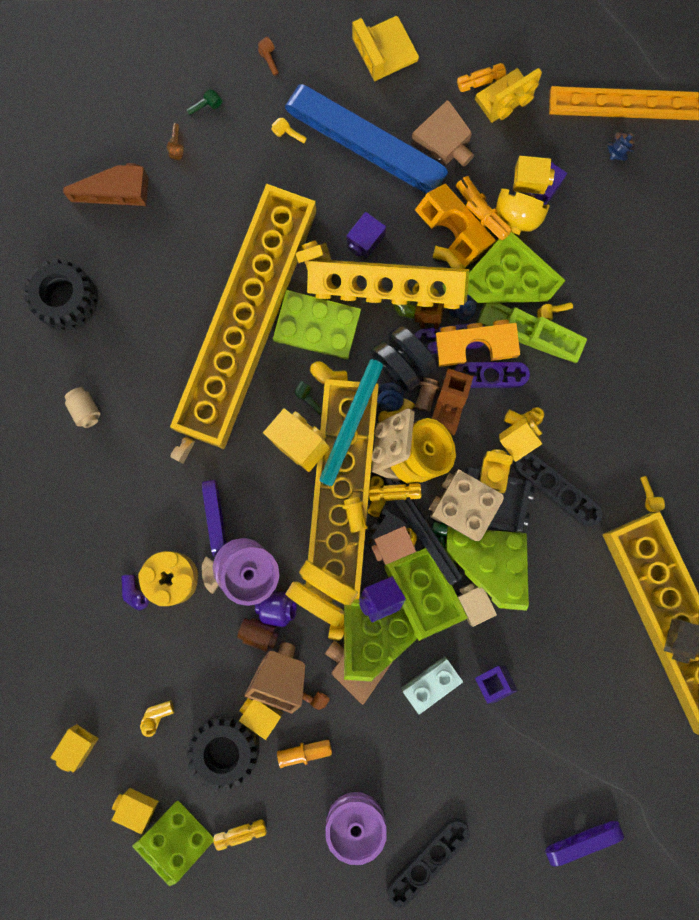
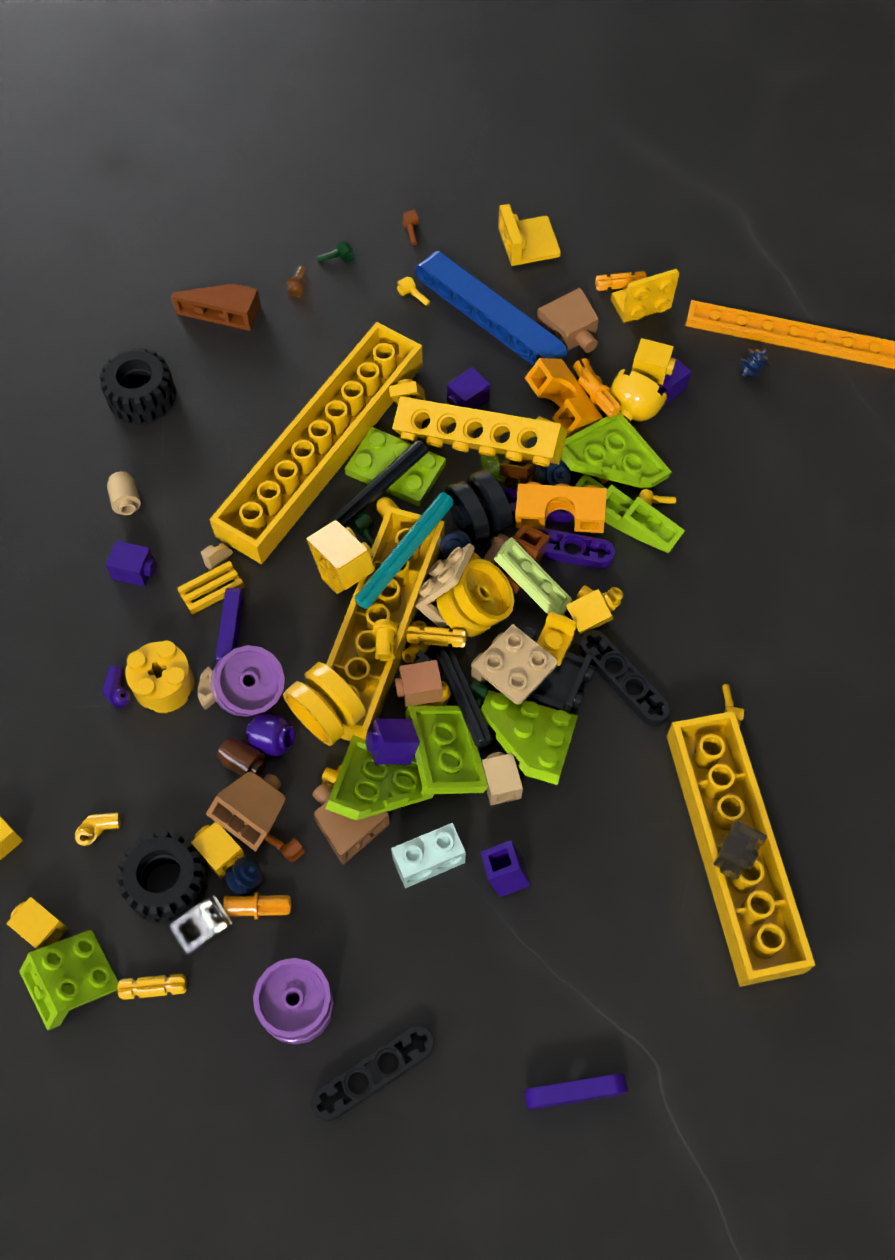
camera: 10 degrees right, 20 degrees down
(111, 476) = (131, 563): none -> dark purple brick
(176, 476) = (208, 583): none -> yellow tile
(265, 783) = (200, 924): none -> clear smoke brick
(287, 733) = (243, 876): none -> dark blue wheel
(304, 360) = (379, 484): none -> black axle
(466, 420) = (532, 578): none -> yellowish green tile

